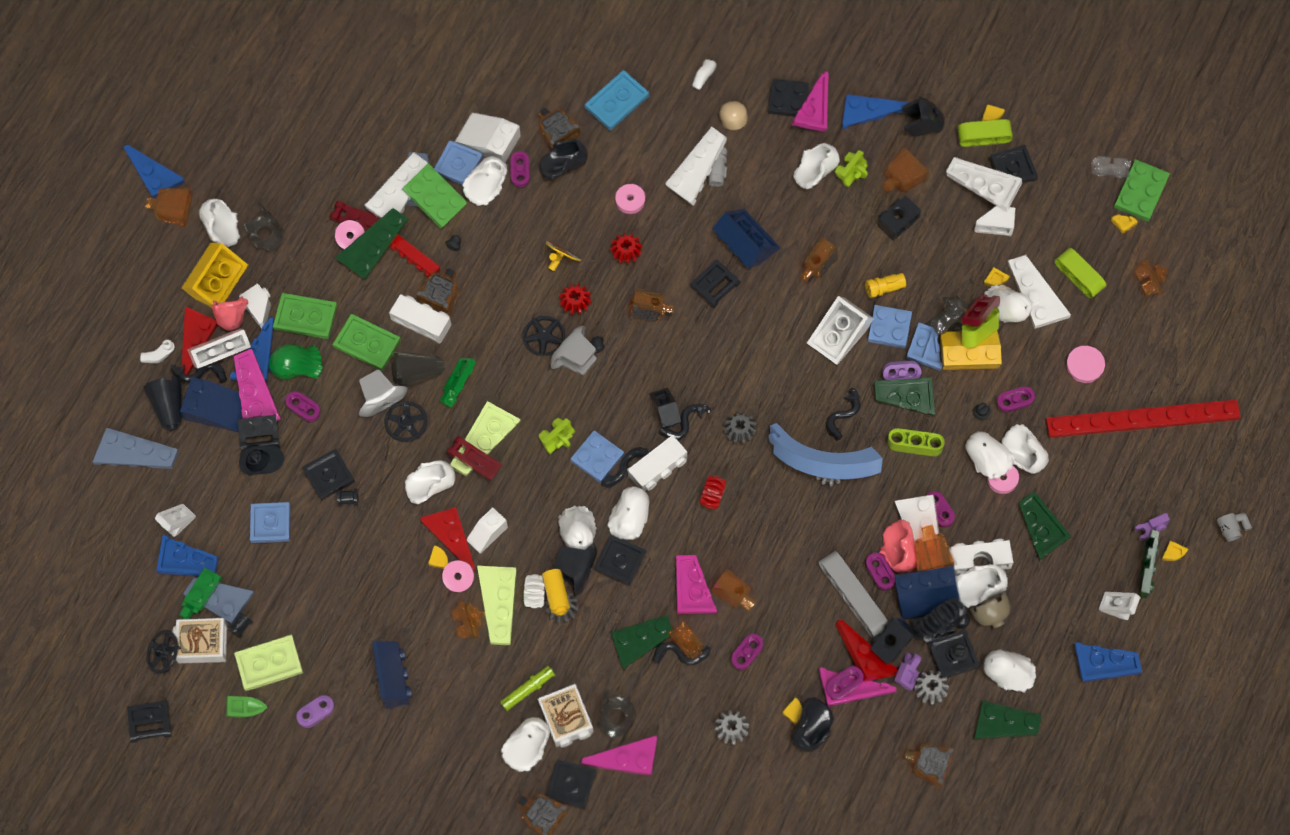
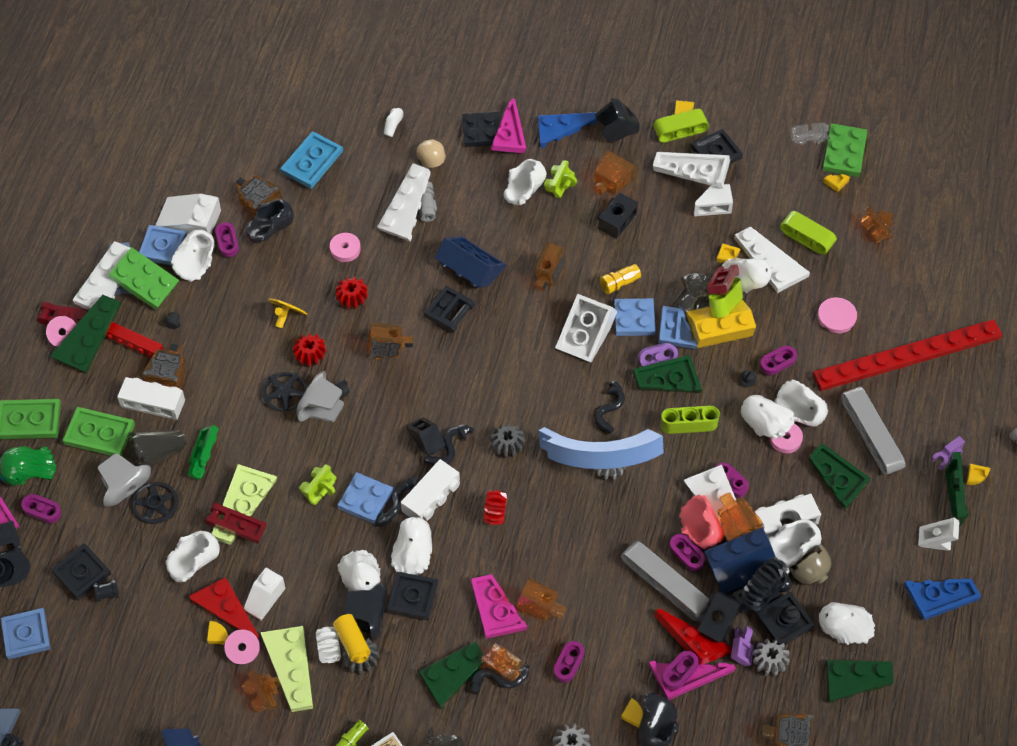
camera: 15 degrees left, 10 degrees down
(1086, 488) = (873, 430): none -> light grey beam

